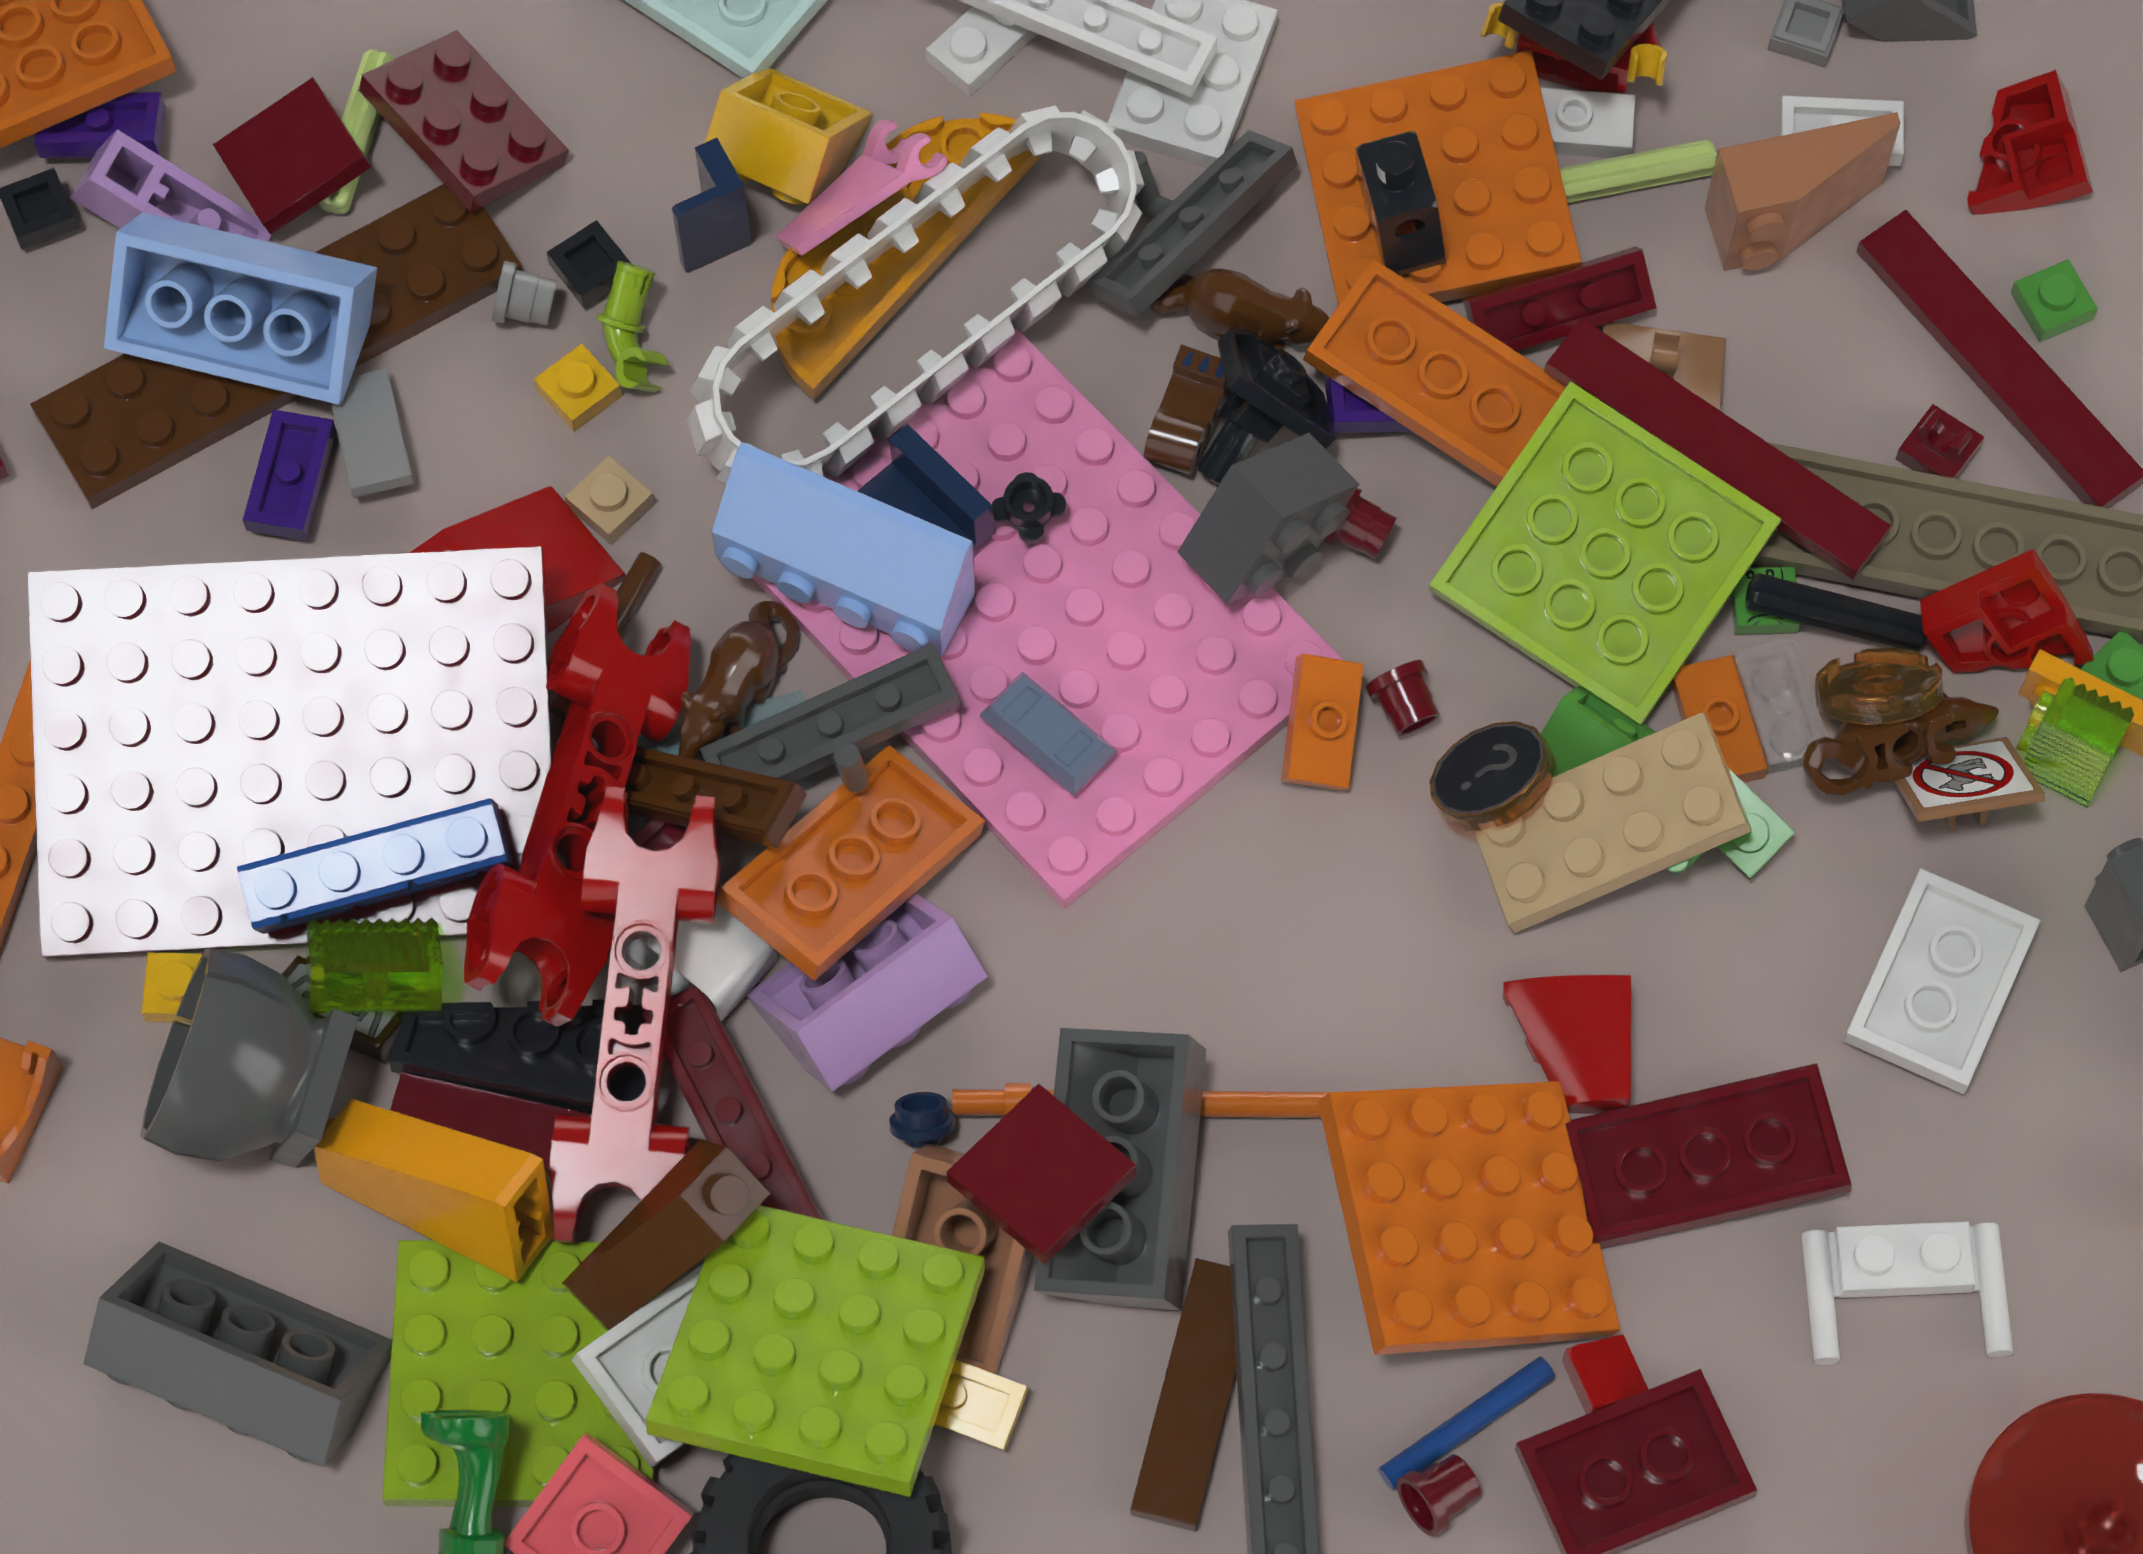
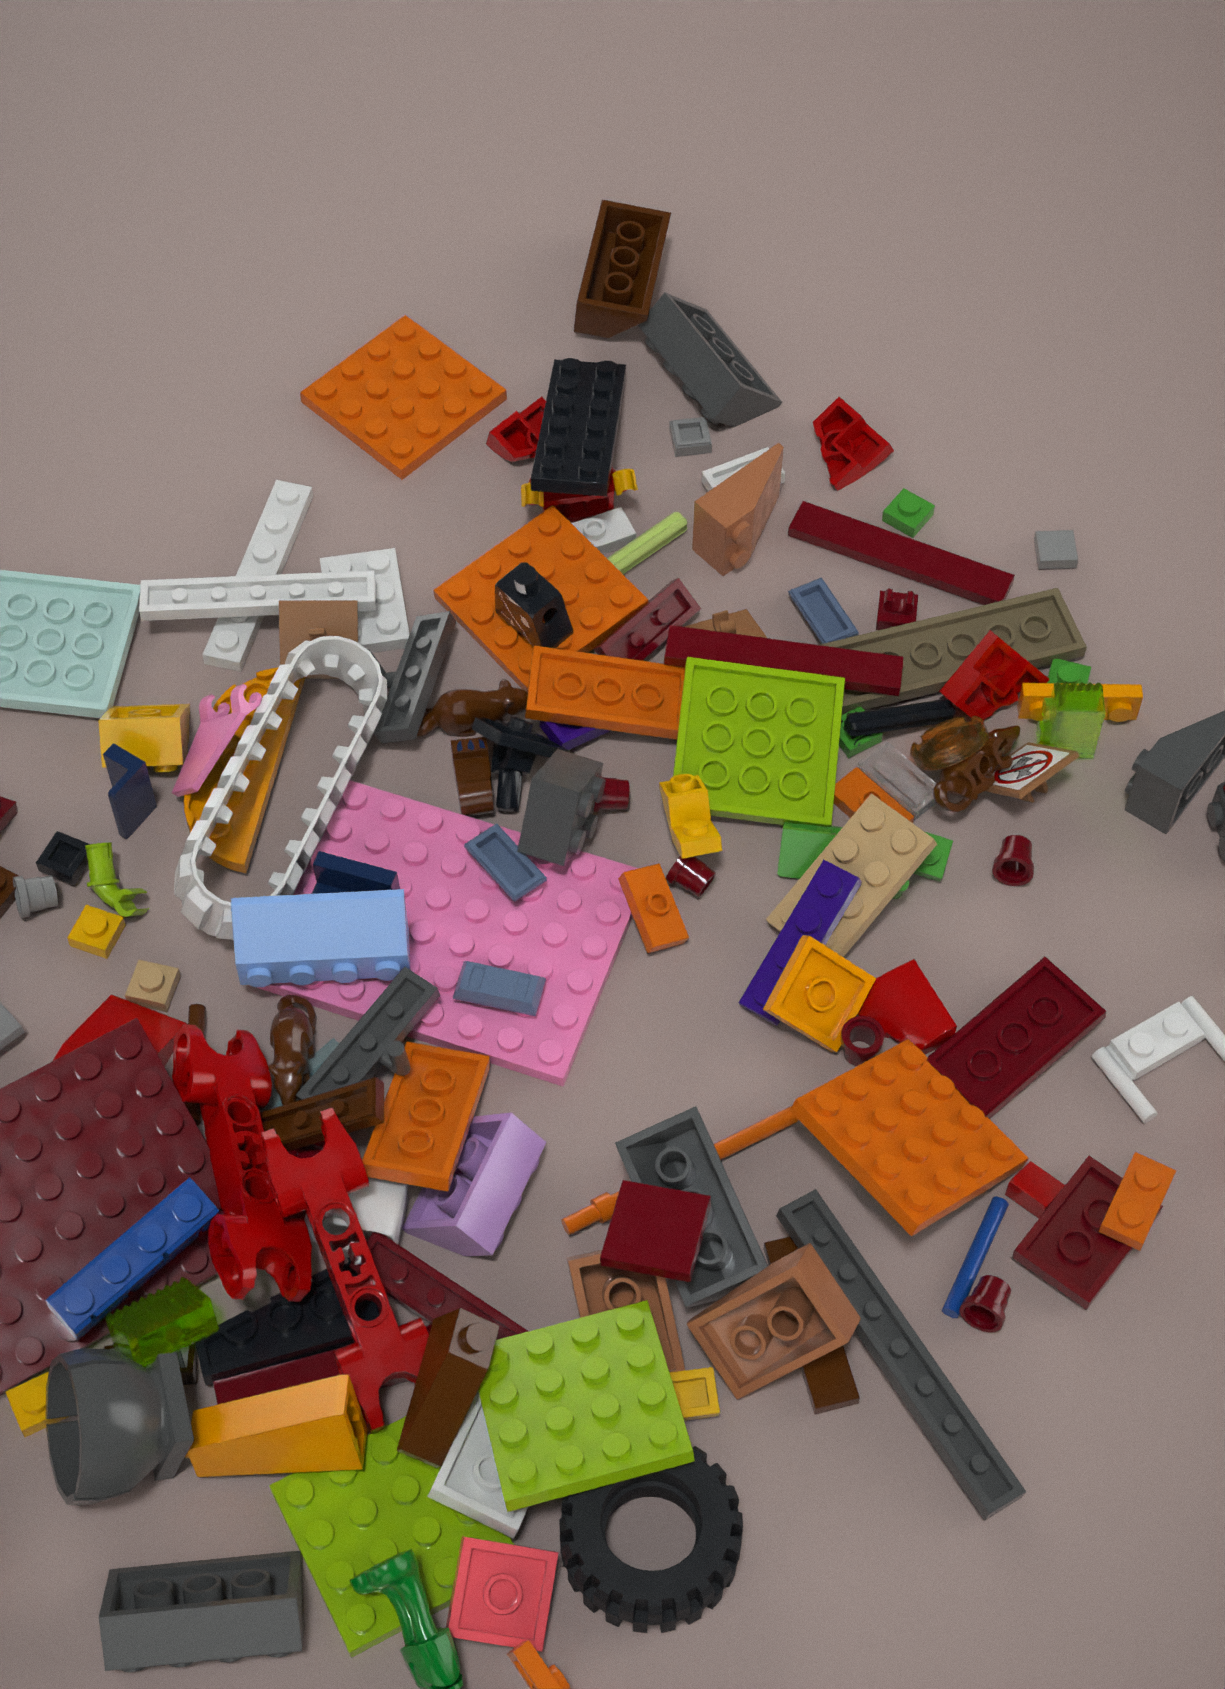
camera: 30 degrees left, 10 degrees down
(921, 1119) = (554, 1245): dark blue plate -> none
(1023, 490) = (417, 858): black plate -> none
(1098, 79) = (314, 619): none -> medium nougat piece
(1135, 1372) = (775, 1322): none -> nougat slope
(1154, 570) = (500, 859): none -> sand blue tile
(1441, 617) = (689, 816): none -> yellow slope
(1467, 959) = (819, 993): none -> light orange plate
(1487, 873) = (815, 916): none -> dark purple plate
(1492, 775) = (768, 889): tile -> none
(1496, 1033) = (864, 1030): none -> dark red piece
(1722, 1465) = (1137, 1201): none -> orange plate
(1830, 397) = (822, 611): none -> sand blue tile
(1868, 903) = (1014, 861): none -> dark red piece
(1942, 981) = (1079, 882): white plate -> none

